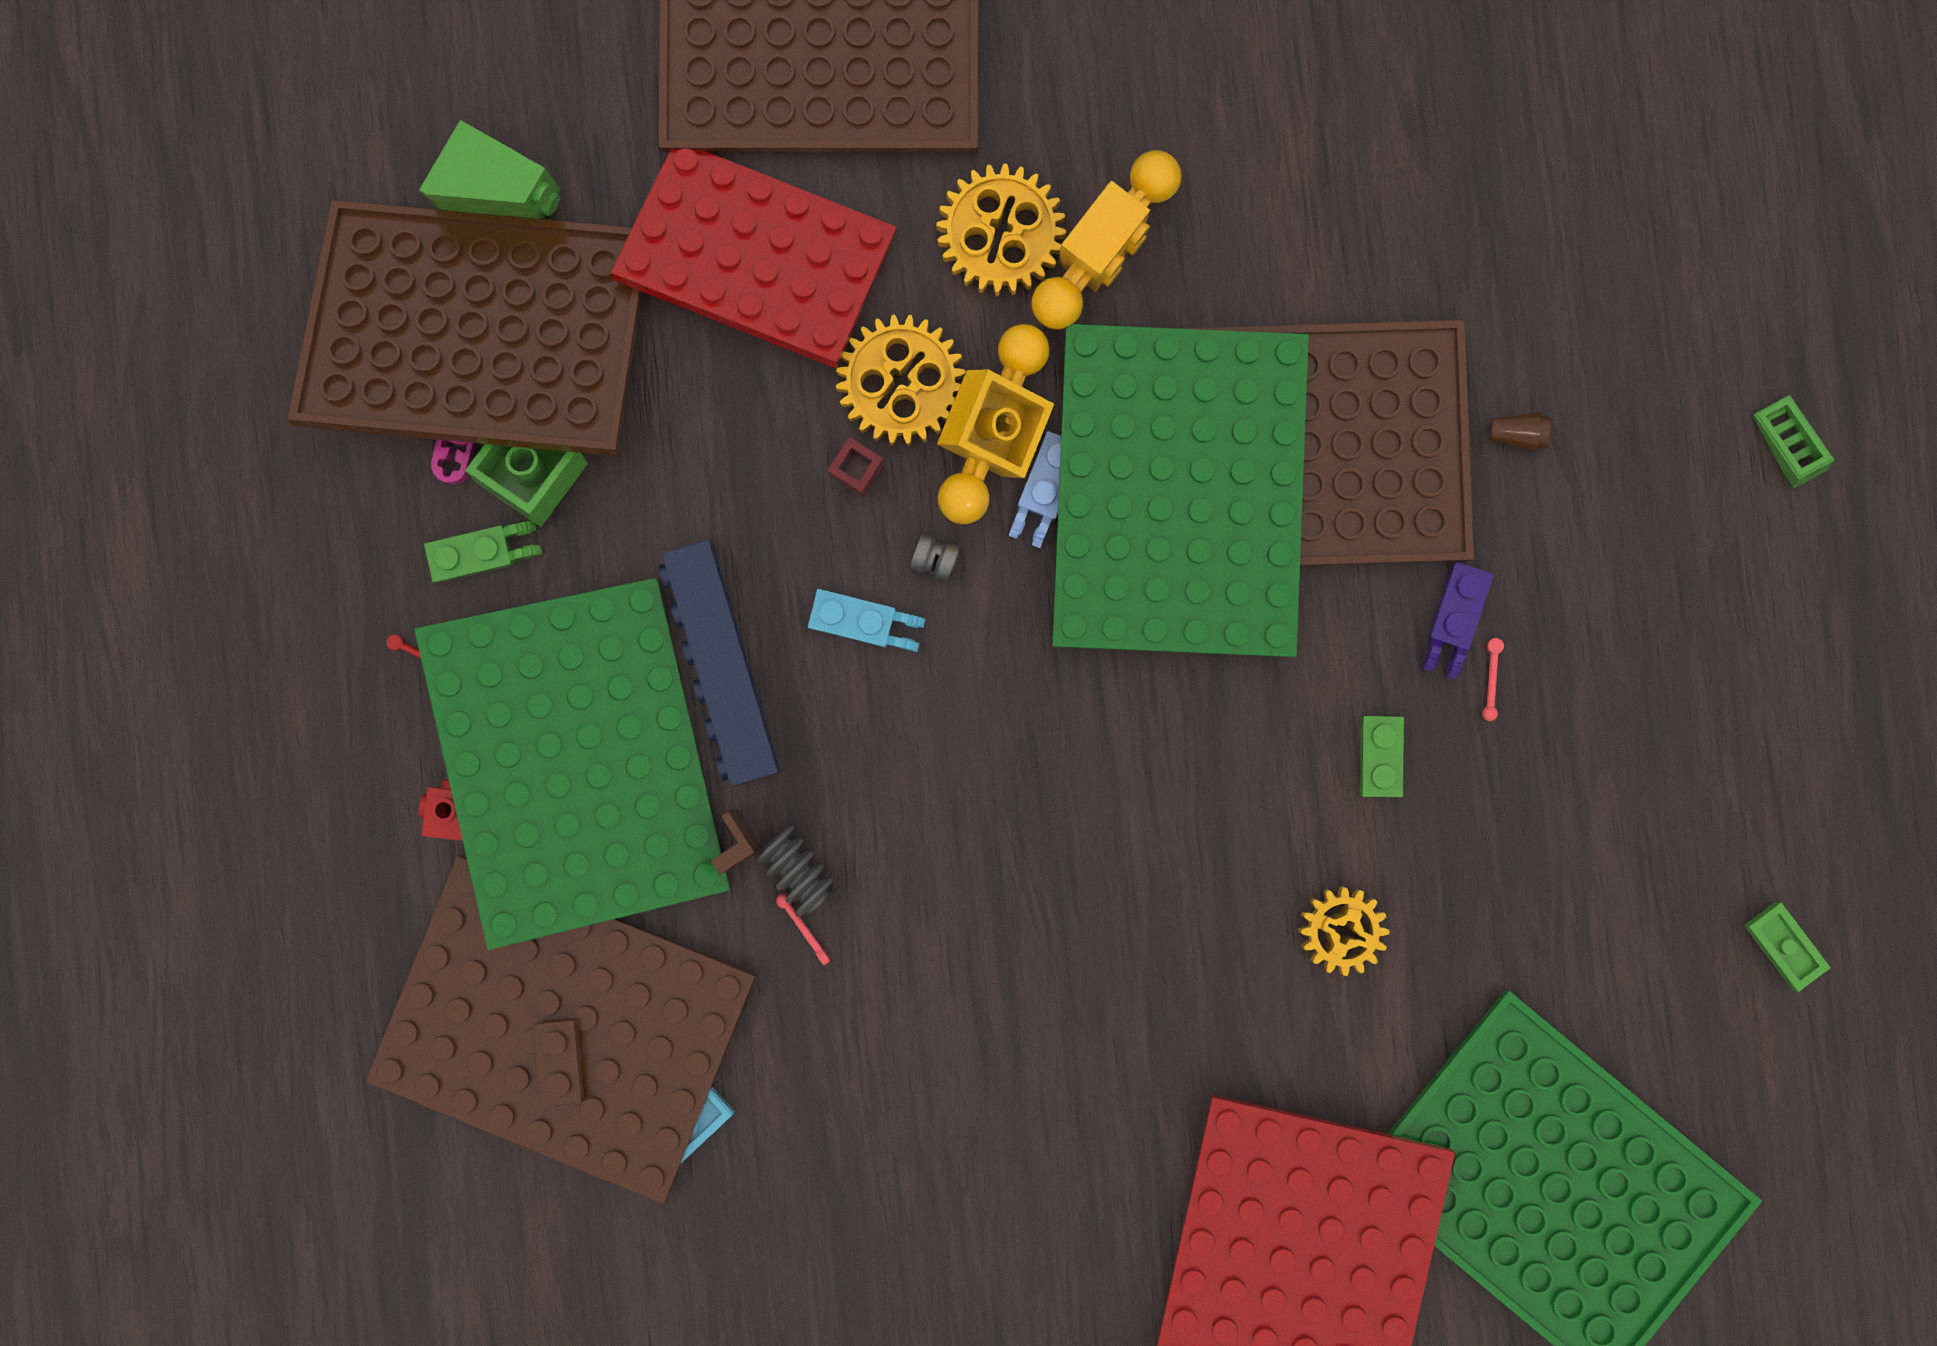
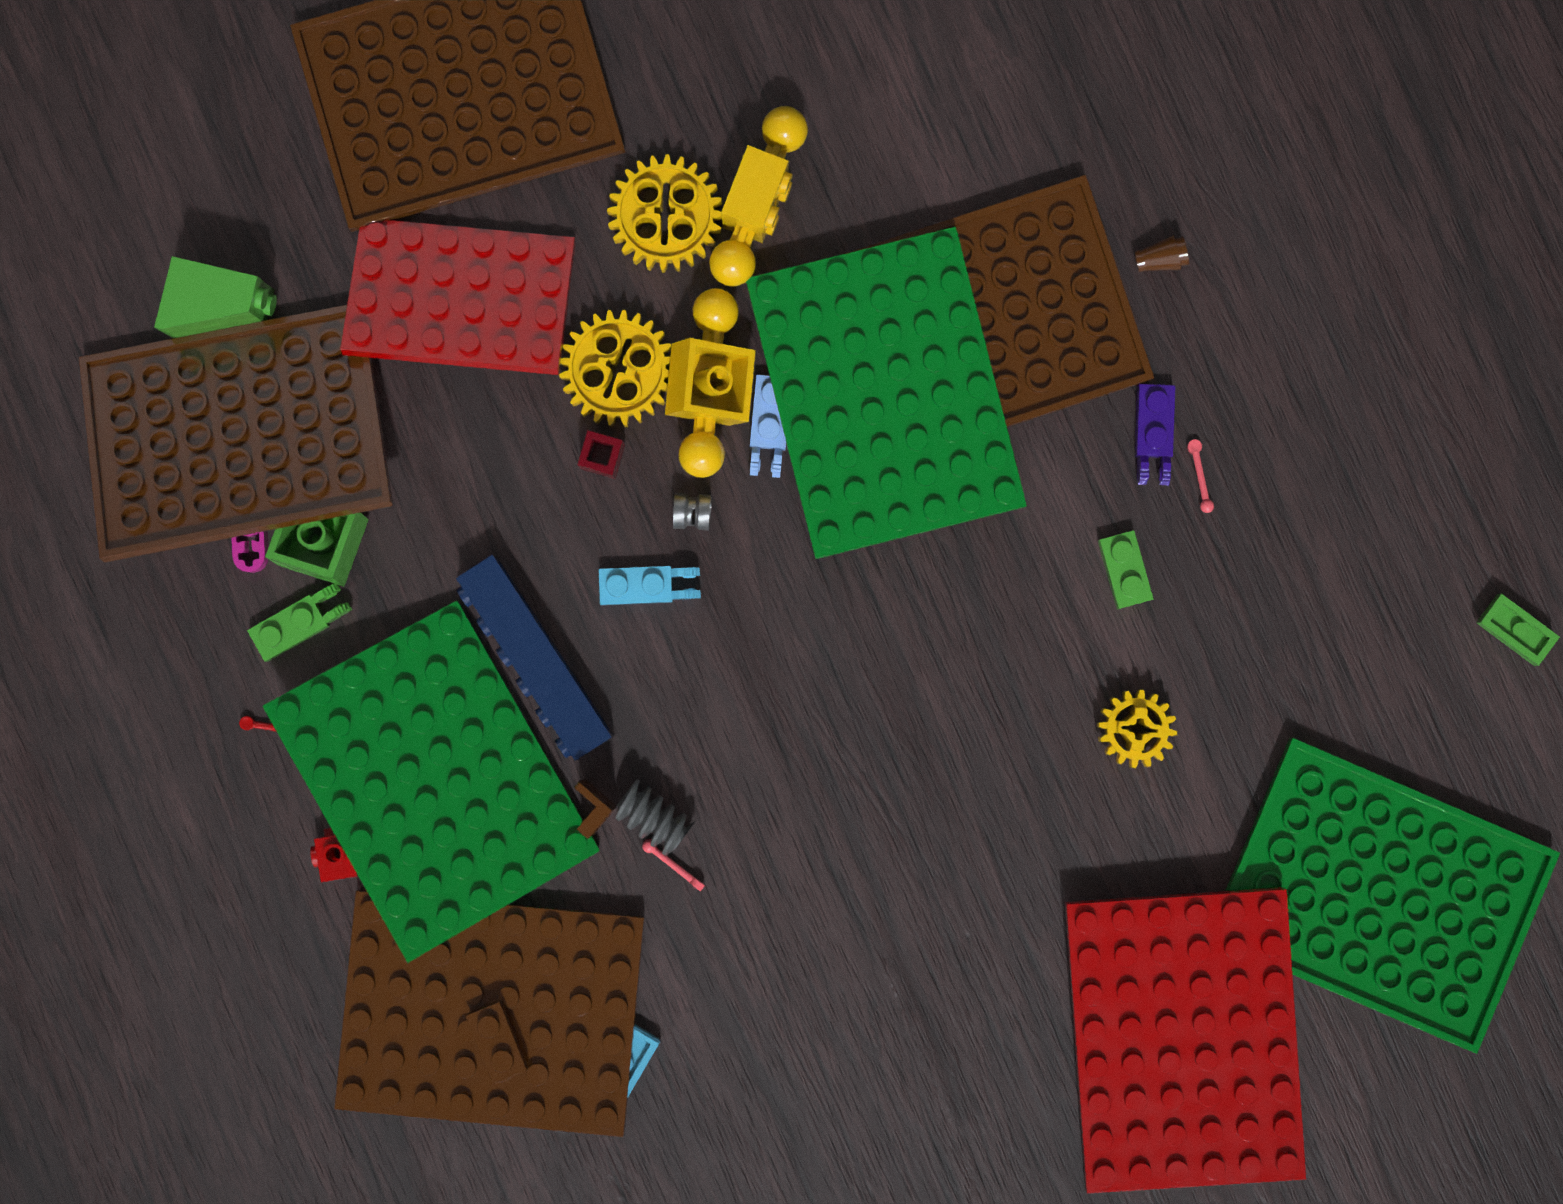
camera: 25 degrees left, 0 degrees up
(1780, 448) = (1405, 187): bright green slope -> none

